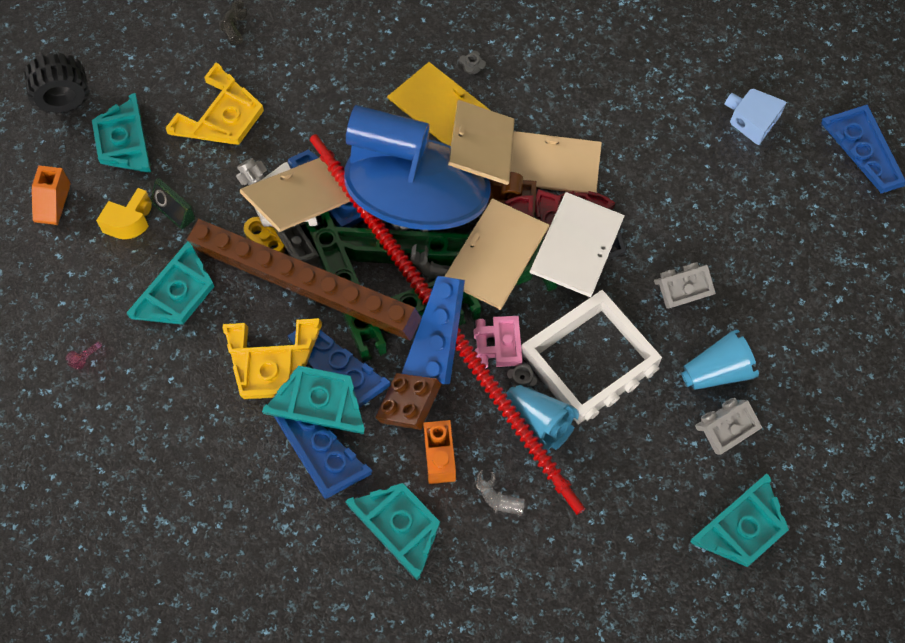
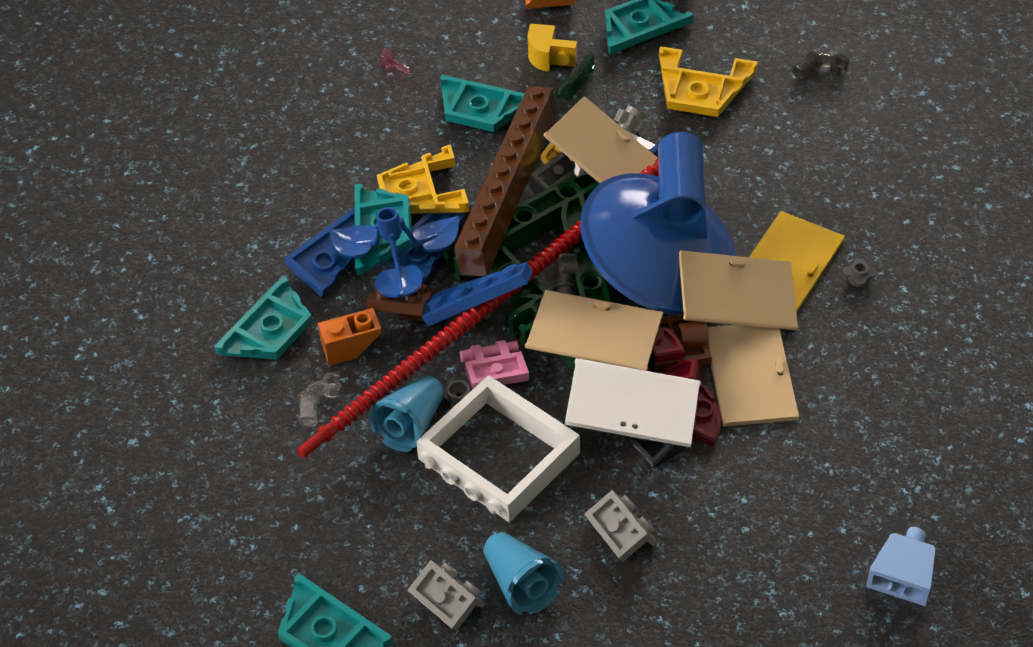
camera: 80 degrees right, 15 degrees down
(347, 356) = (398, 282): none -> blue plant

